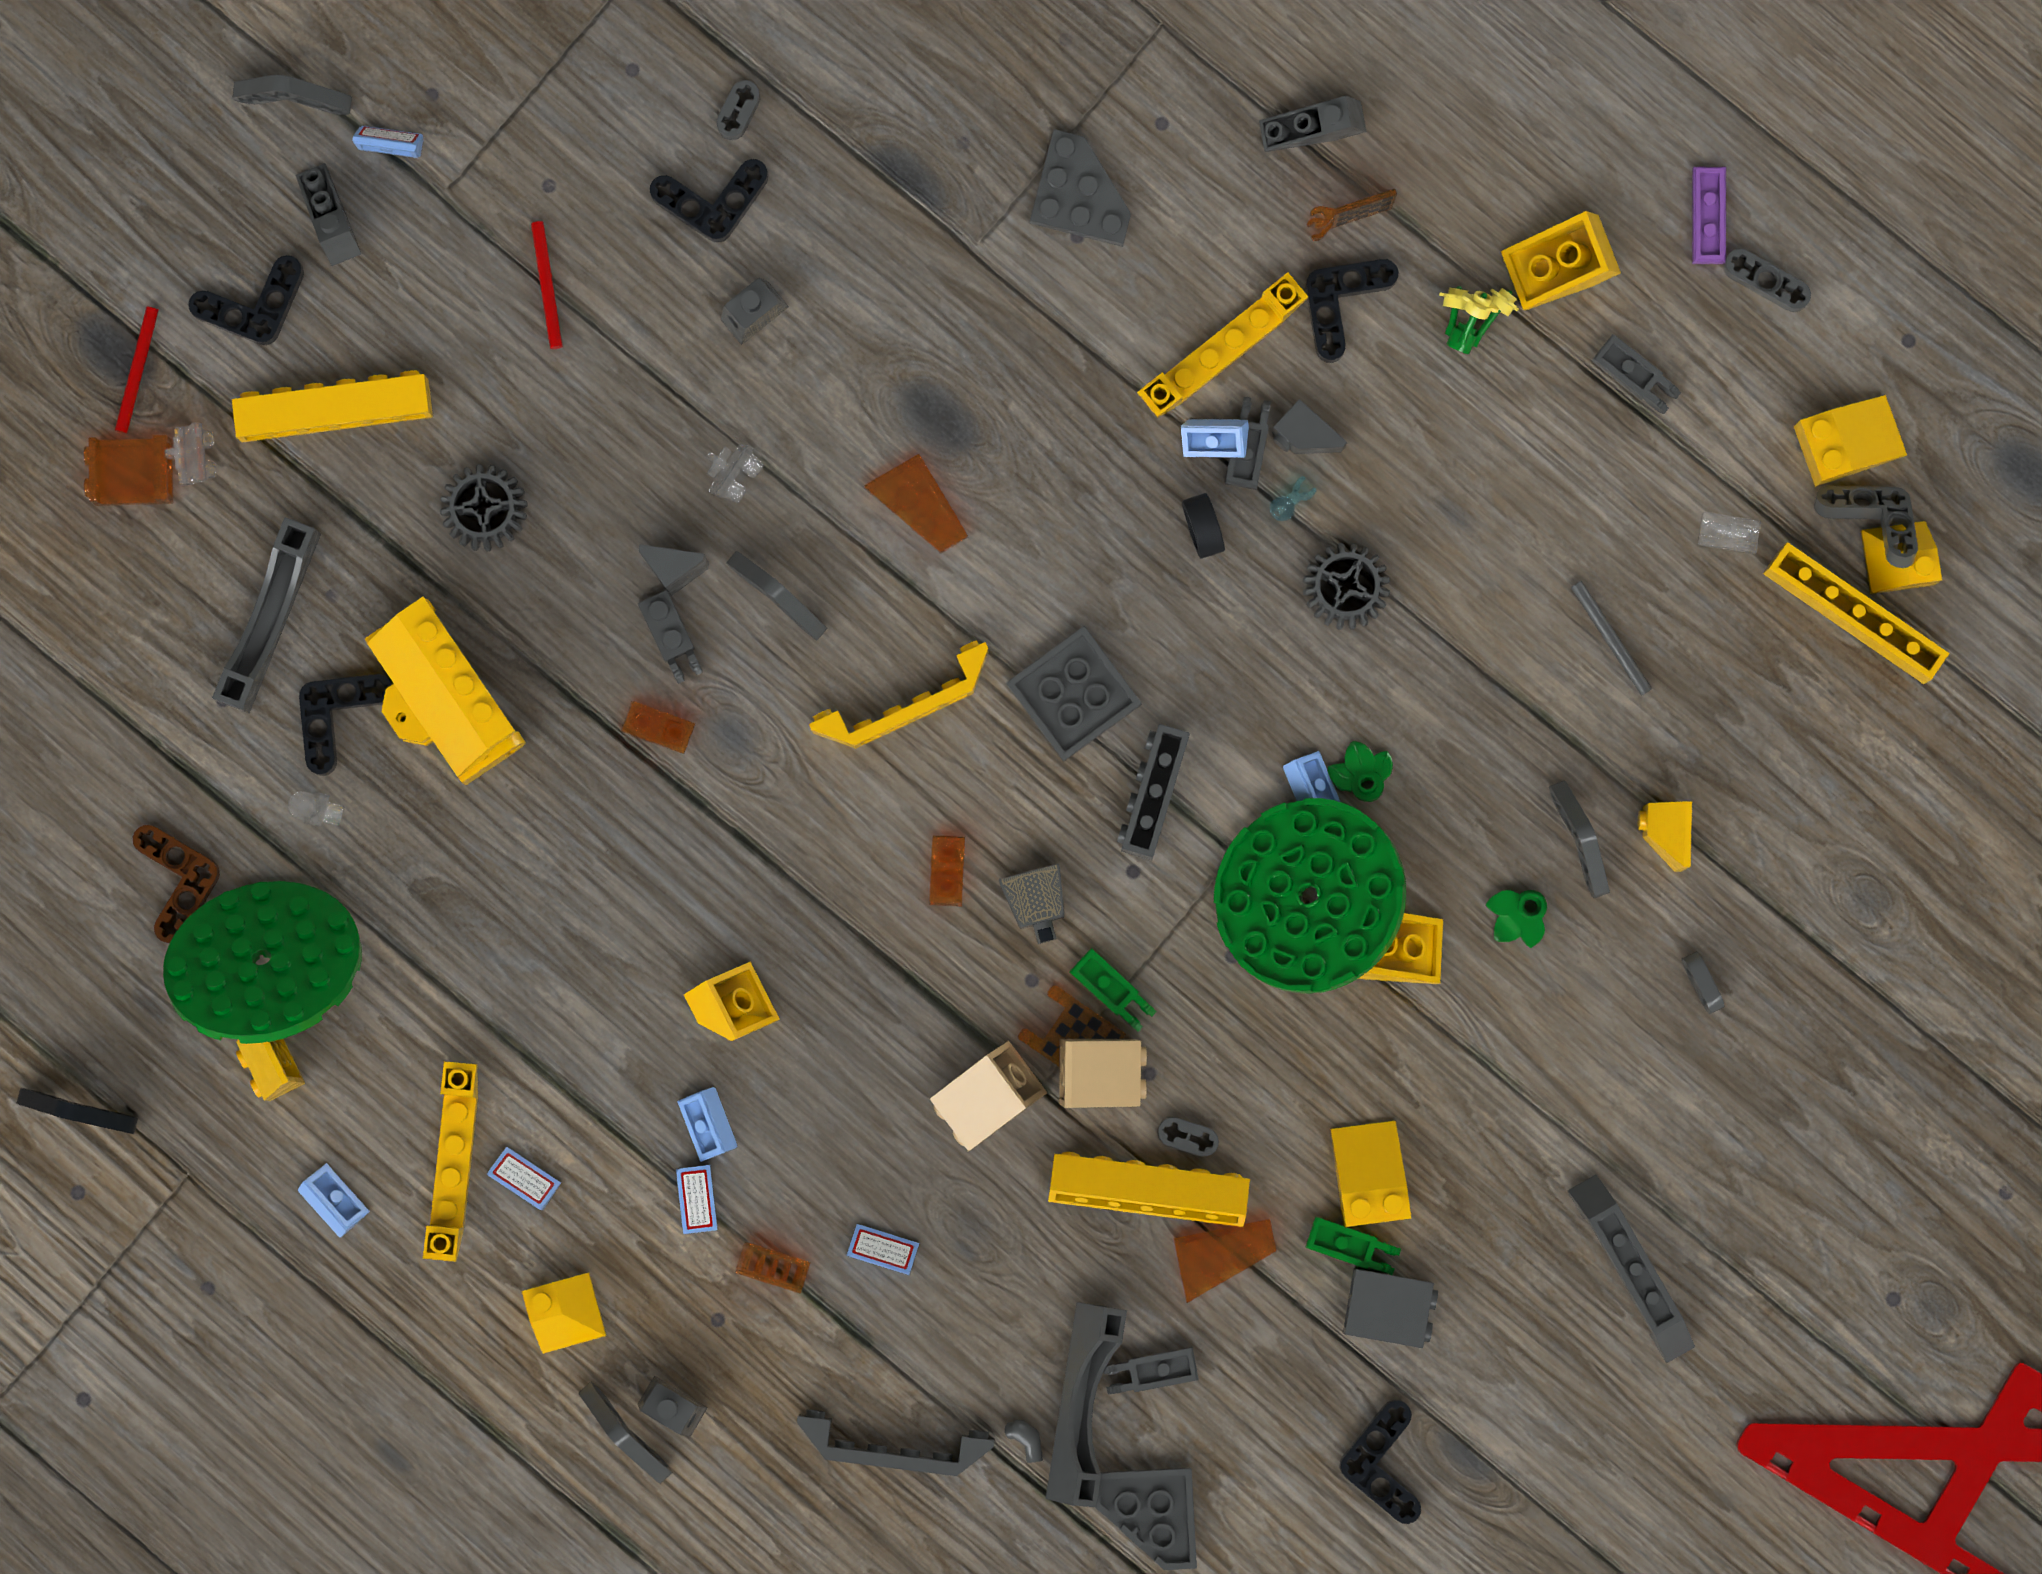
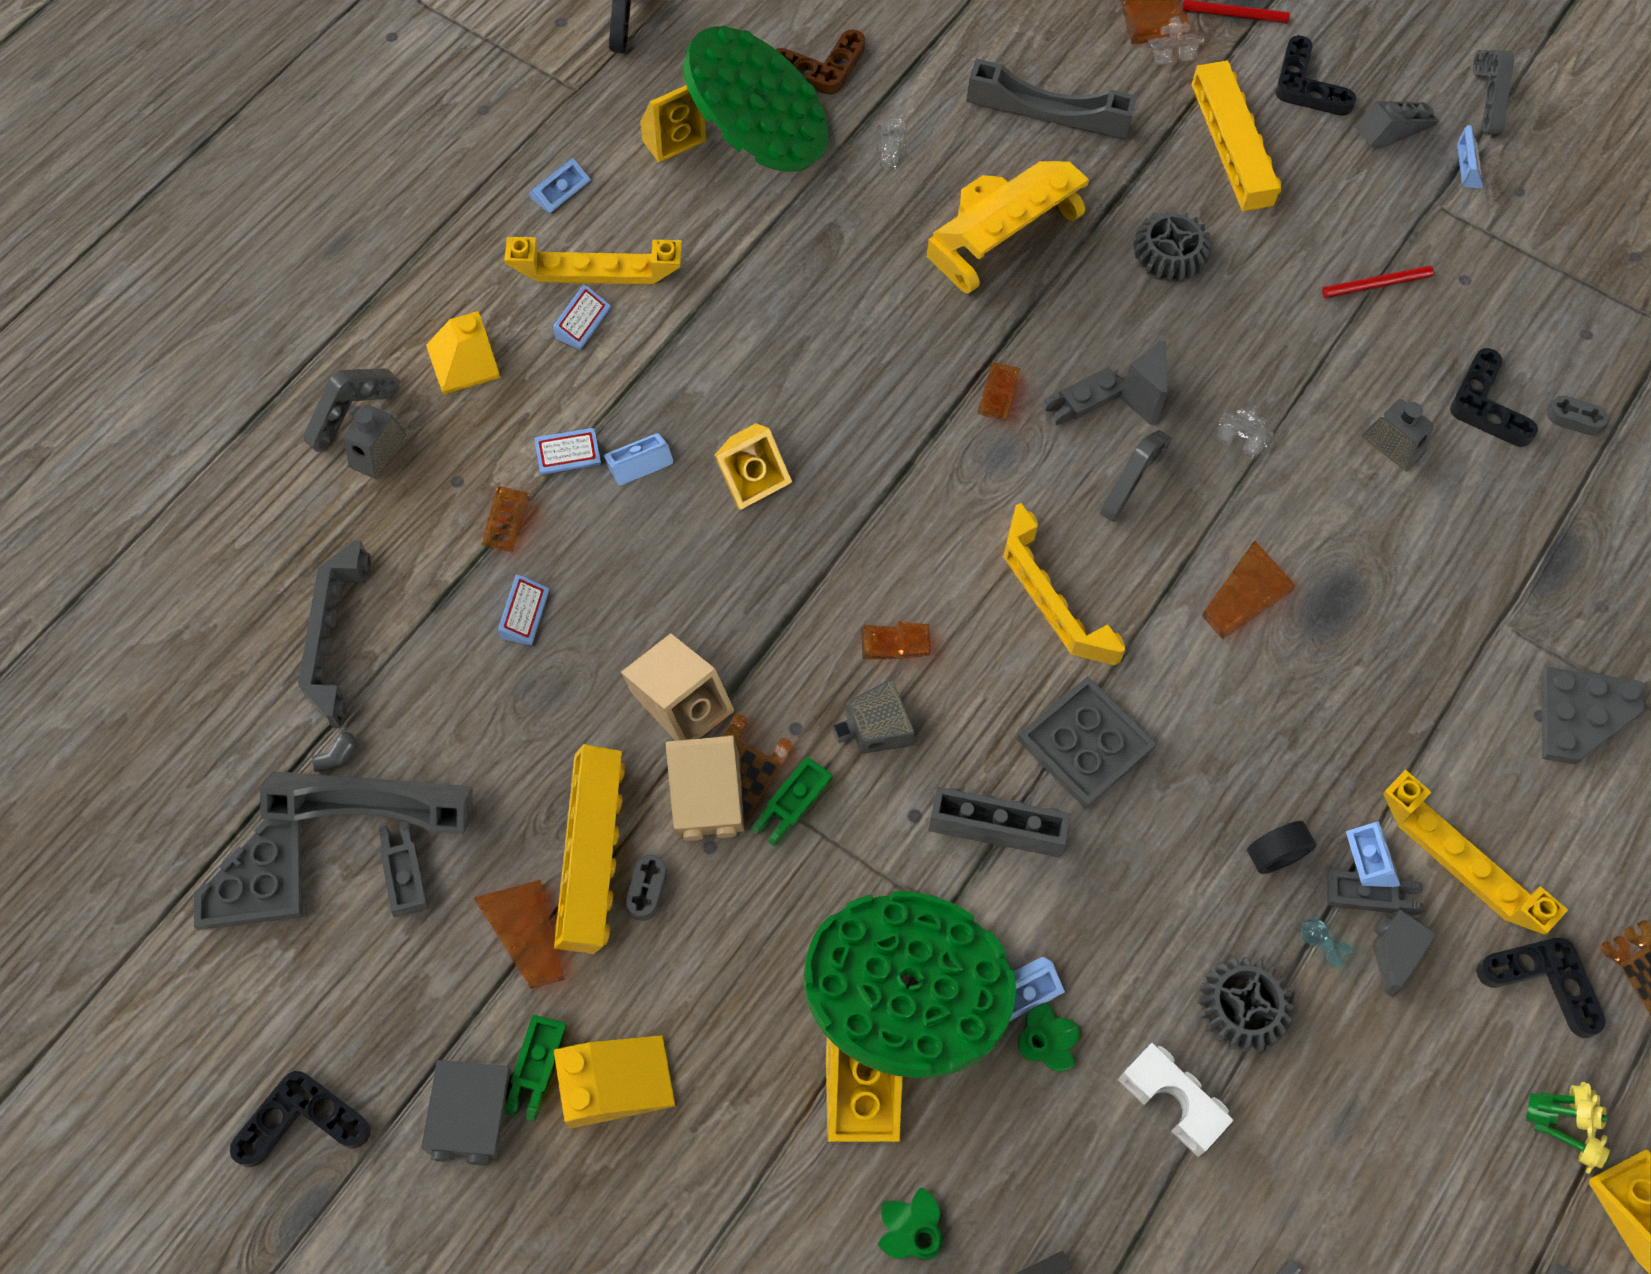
camera: 80 degrees right, 20 degrees down
(323, 712) = (976, 150): black beam -> none
(1448, 645) = (1202, 1116): none -> white arch

